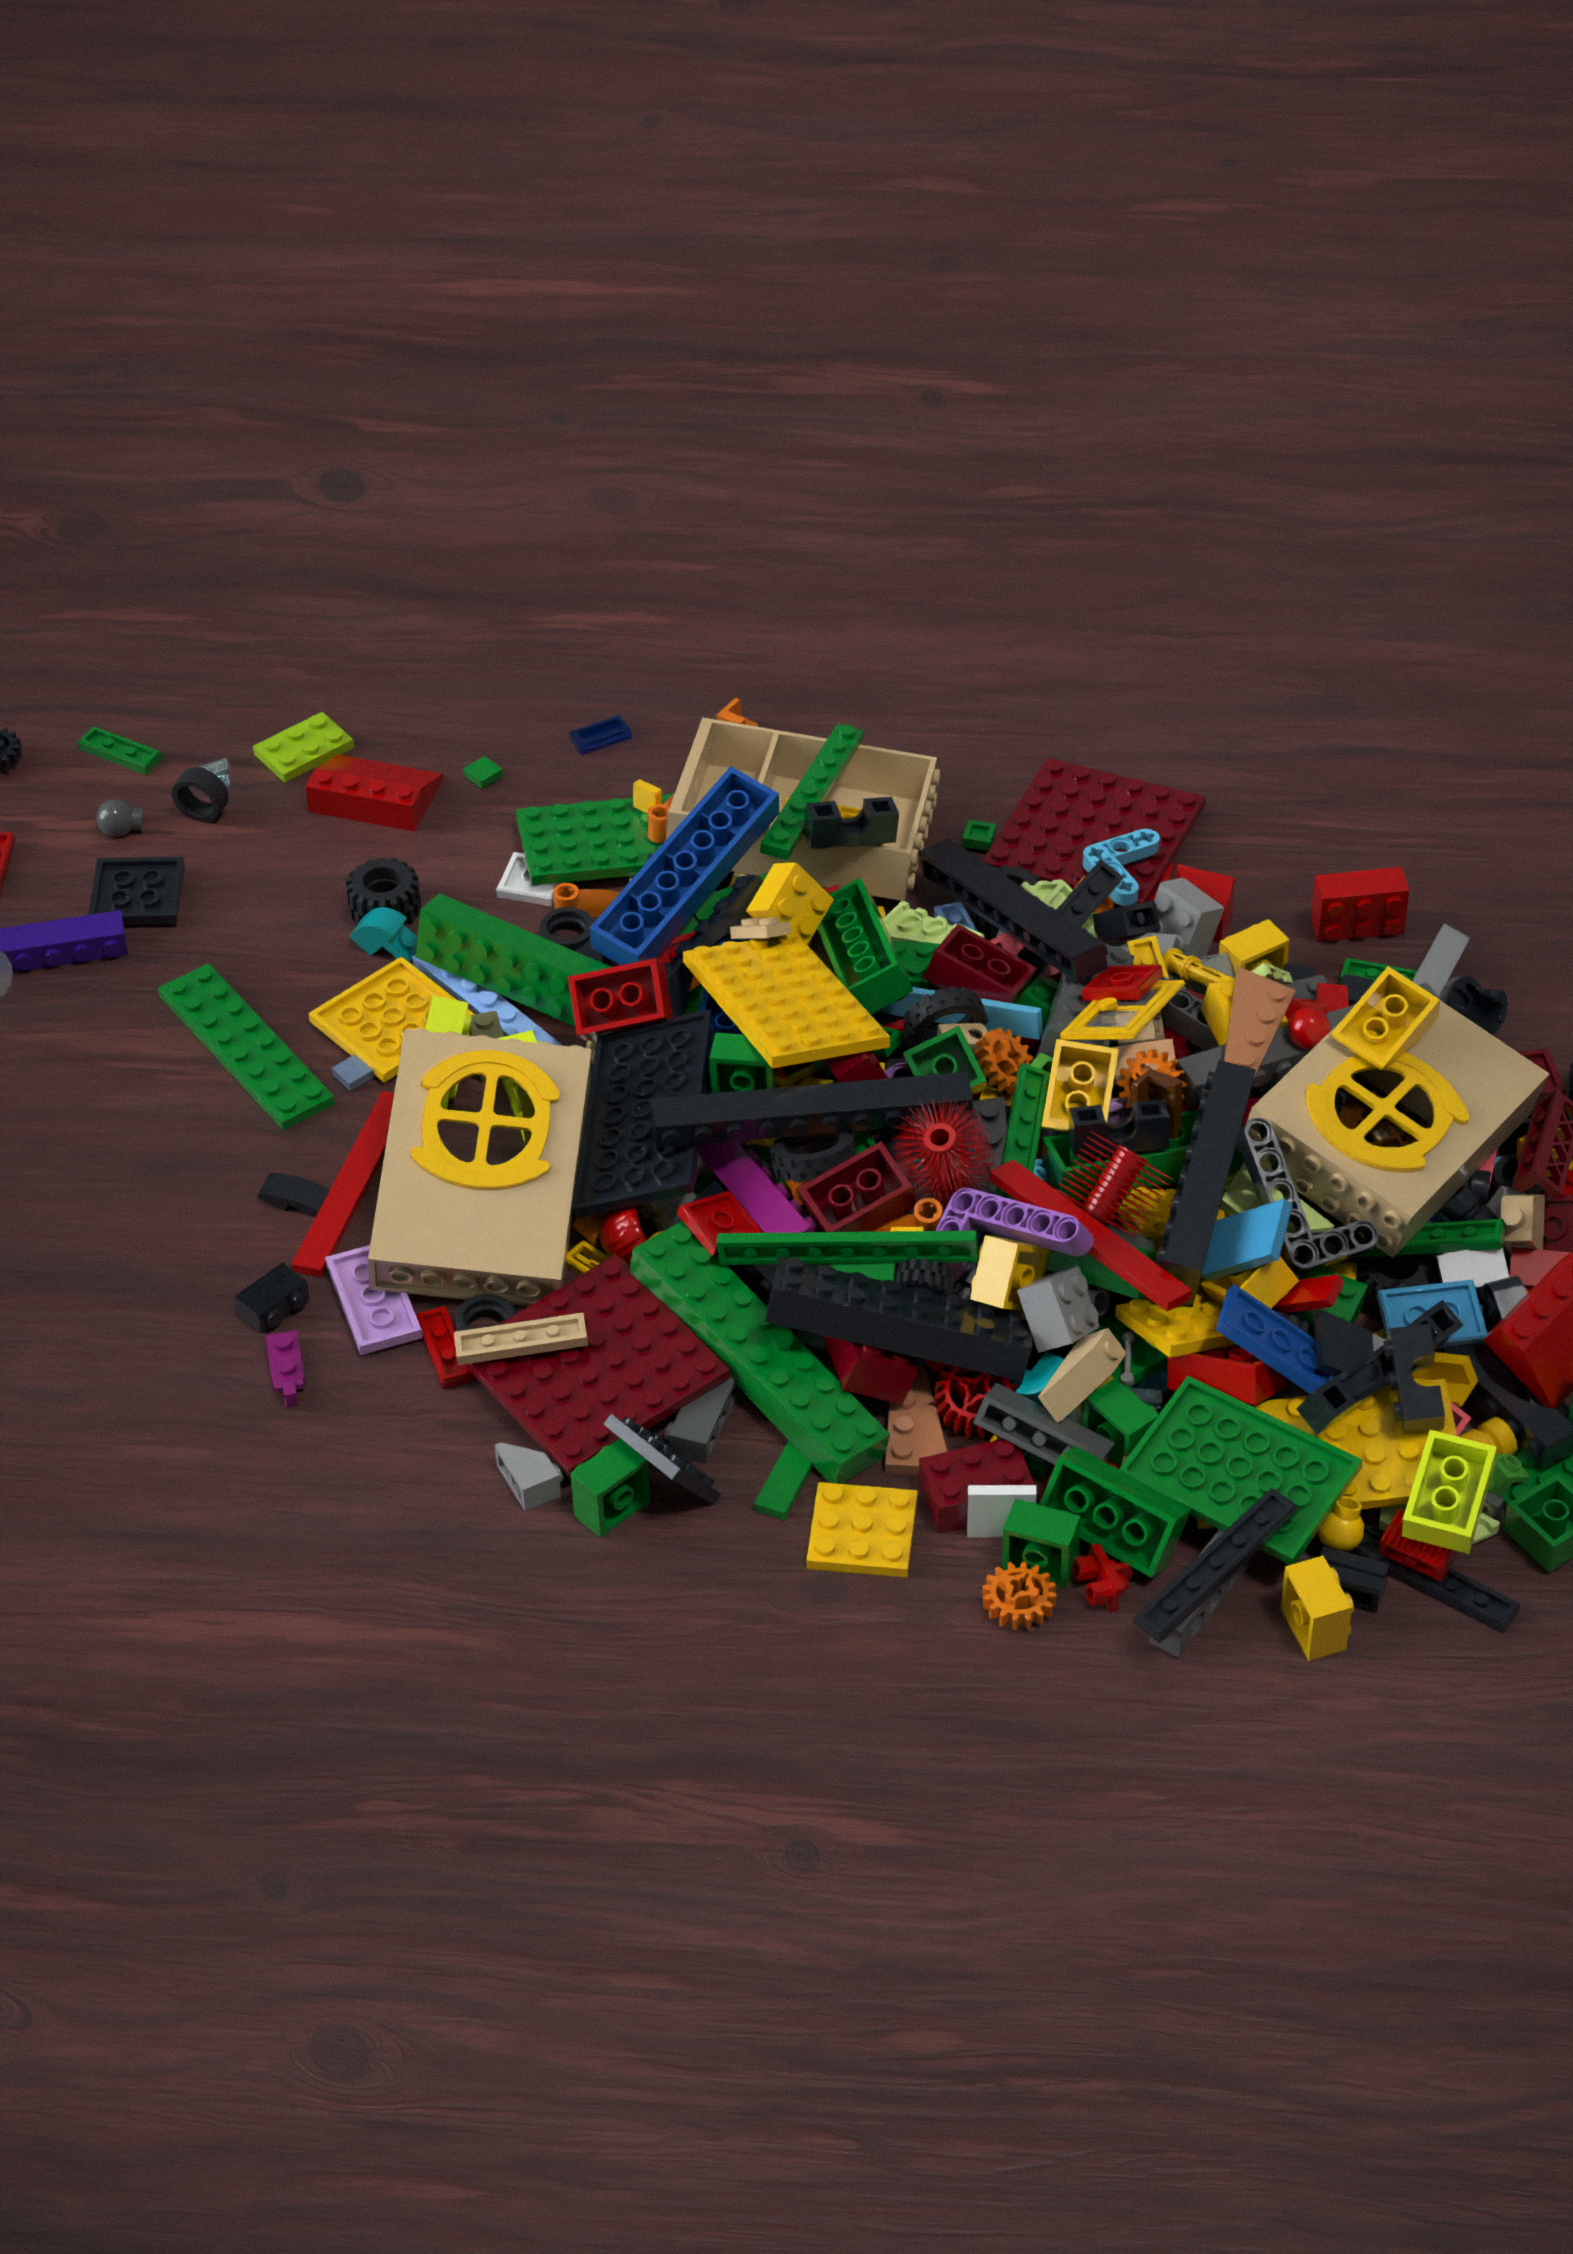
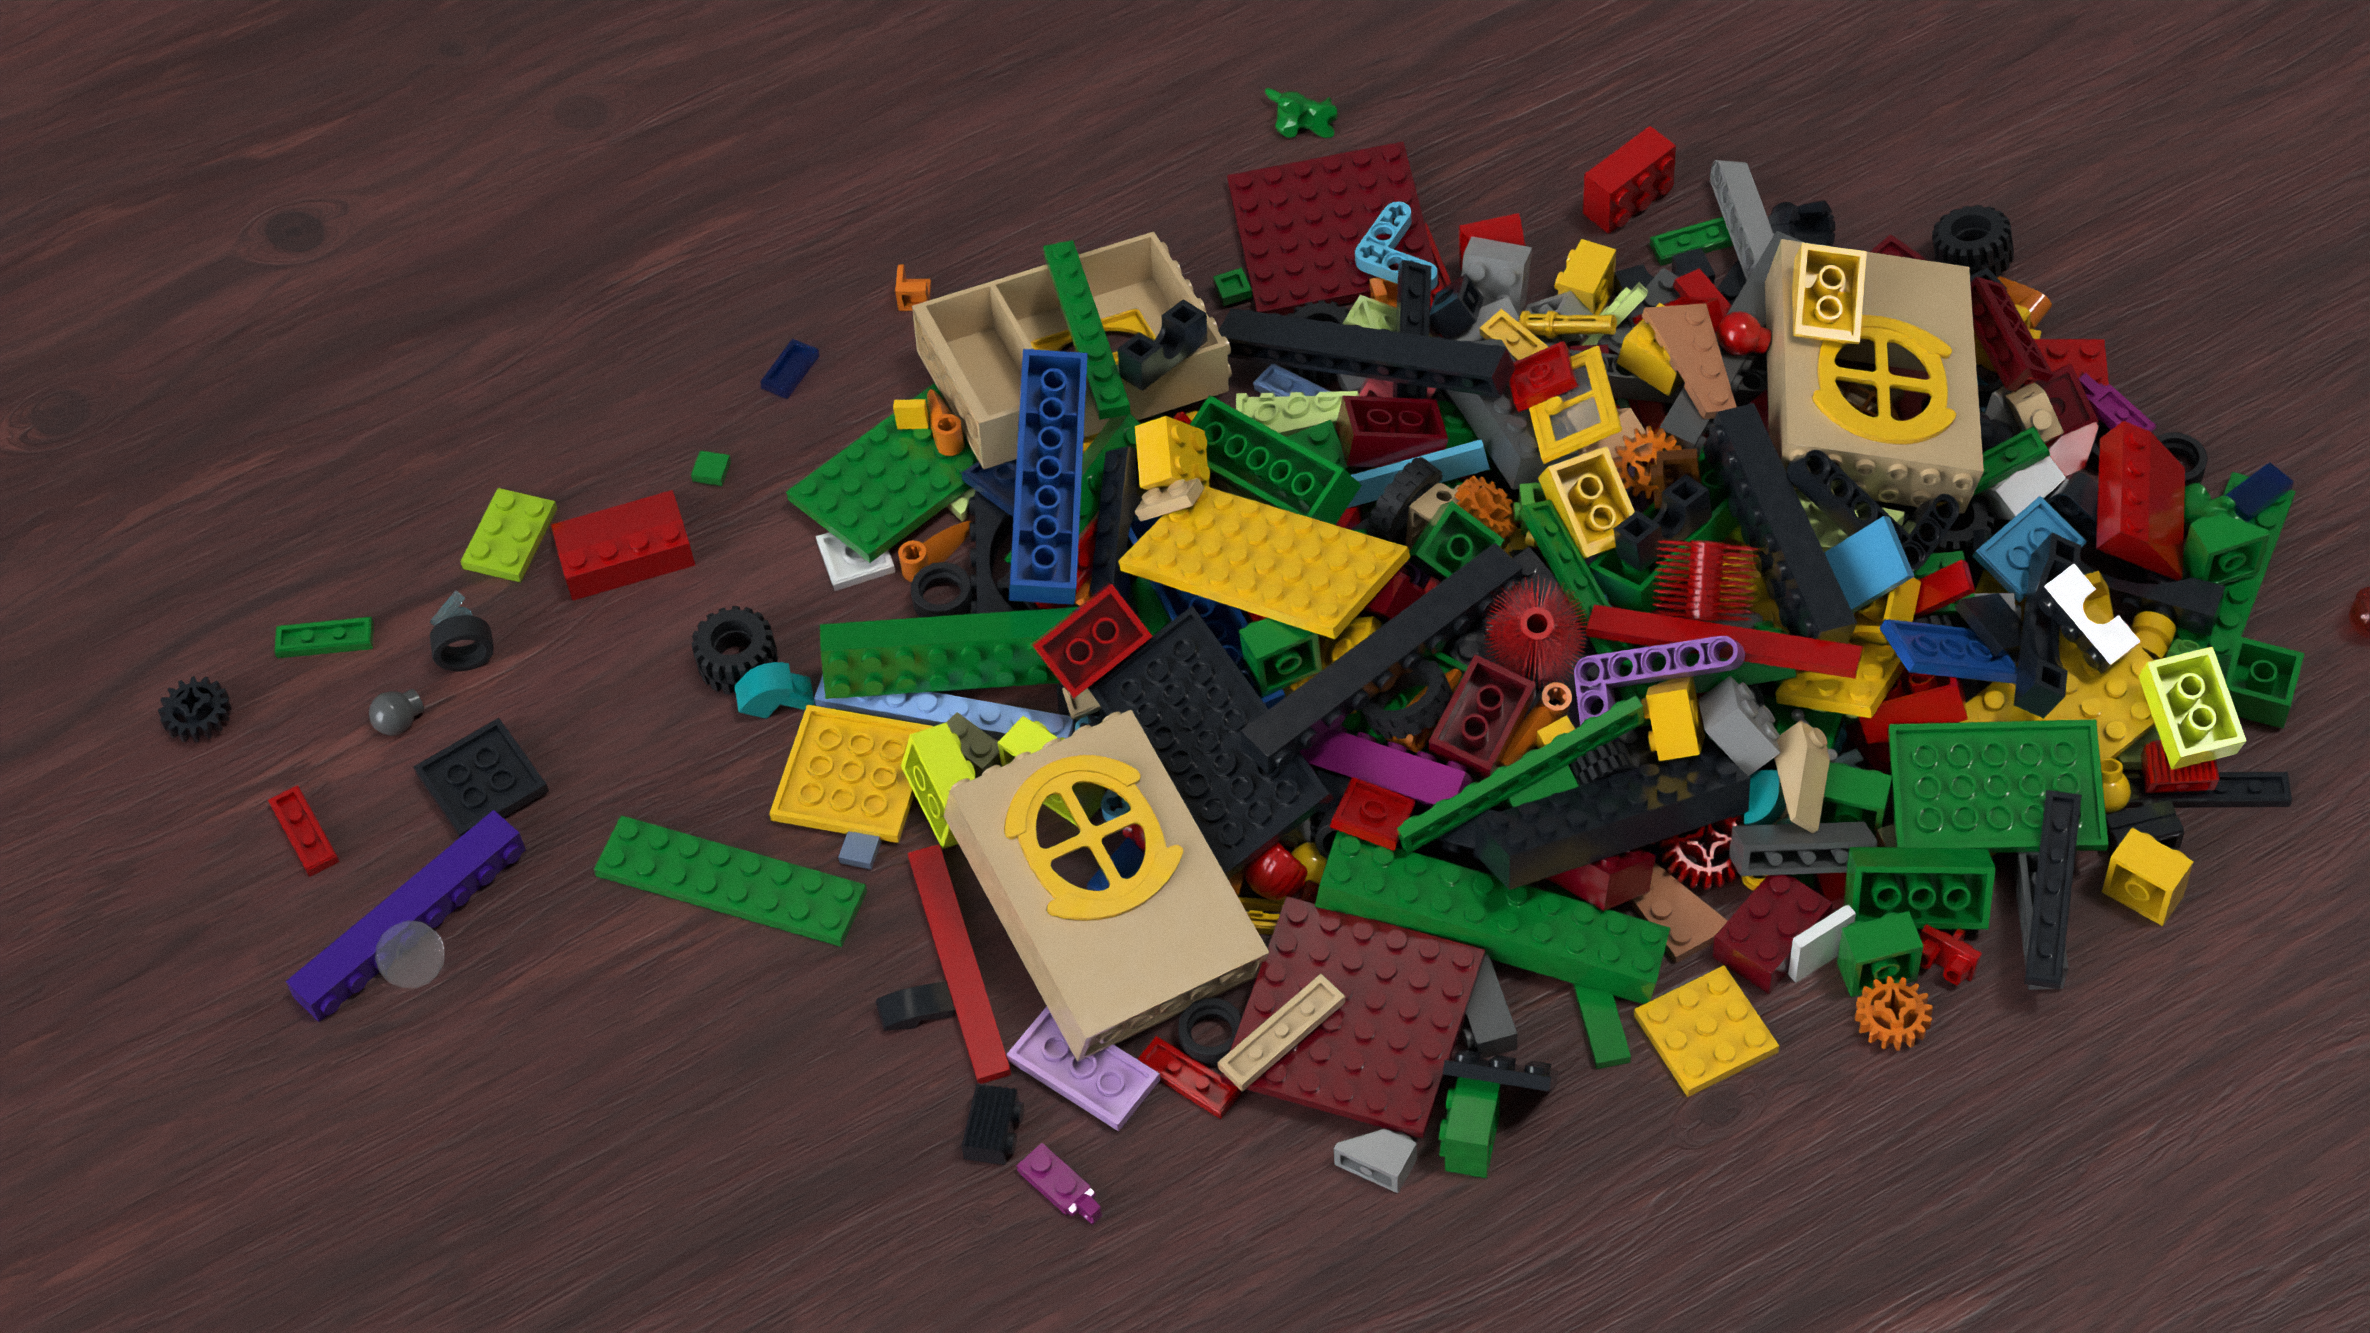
camera: 30 degrees left, 10 degrees up
(1144, 740) = (1299, 112): none -> green animal

